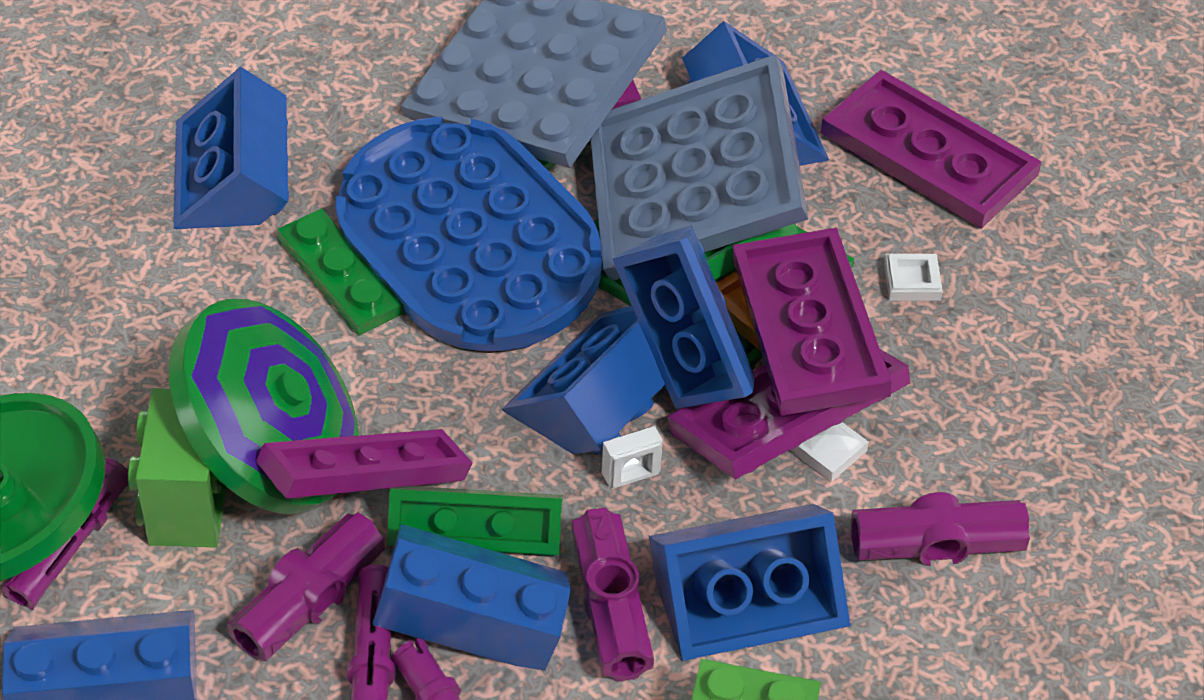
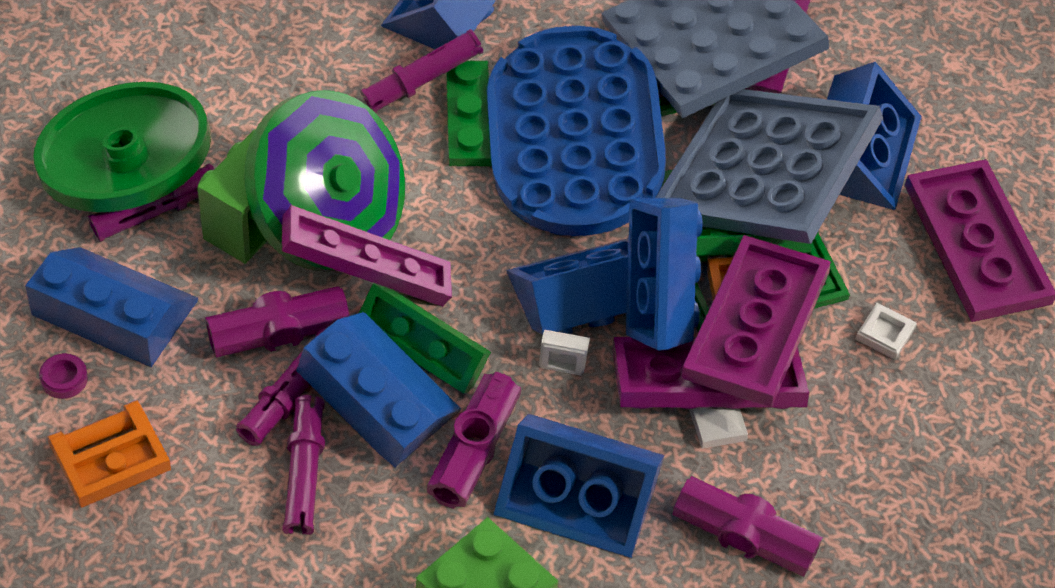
camera: 30 degrees right, 5 degrees up
(254, 265) = (423, 70): none -> magenta pin

